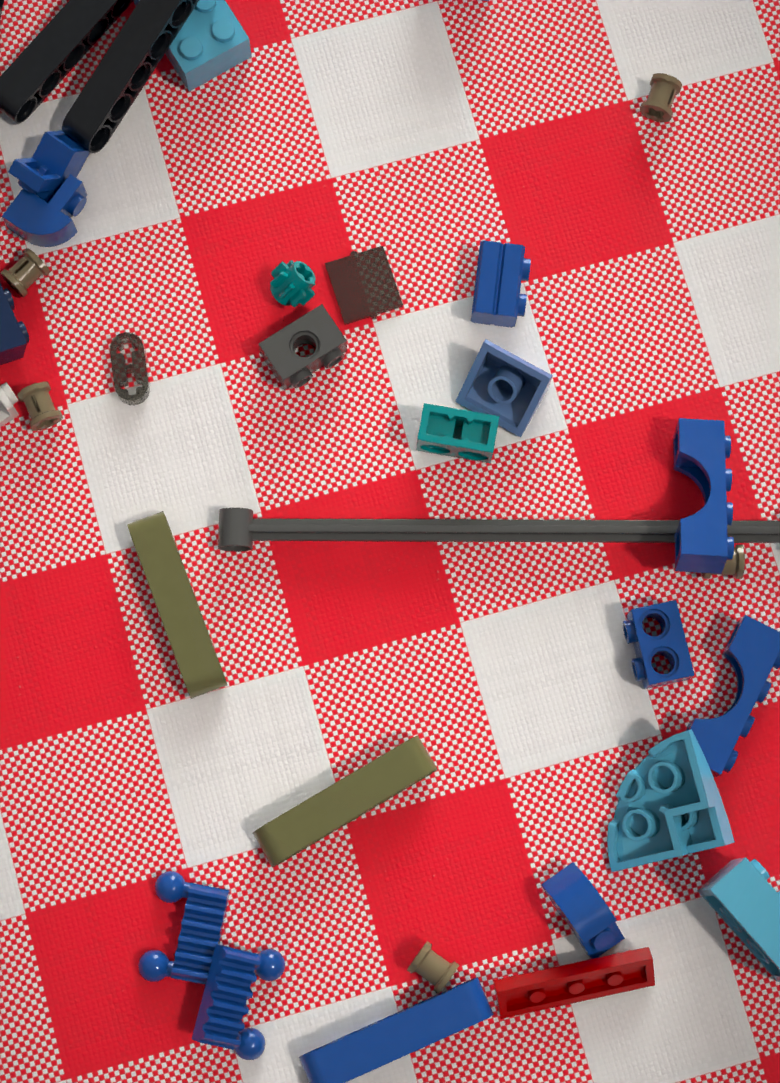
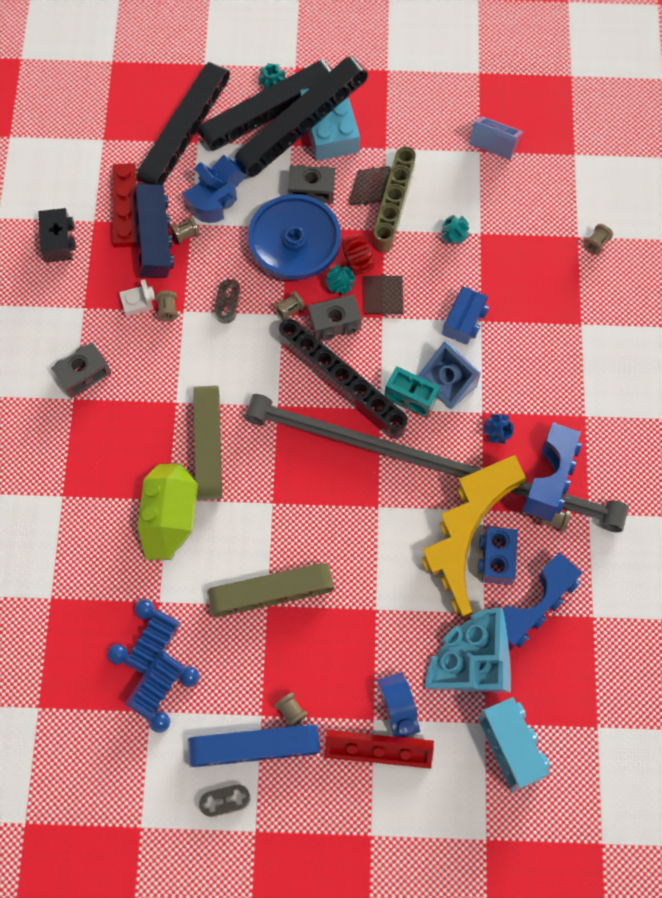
camera: 20 degrees right, 10 degrees down
(153, 728) = (166, 510): none -> lime wedge
(183, 152) = (322, 176): none -> dark grey brick
(200, 235) = (294, 237): none -> blue dish
(229, 349) = (290, 306): none -> dark tan bush
(287, 113) = (369, 186): none -> clear smoke piece
(306, 235) = (357, 254): none -> red gear
(328, 107) = (390, 207): none -> olive beam
(334, 426) = (344, 388): none -> black beam
(441, 147) = (455, 229): none -> teal gear
(590, 669) = (481, 491): none -> yellow arch
(601, 450) = (498, 428): none -> blue gear

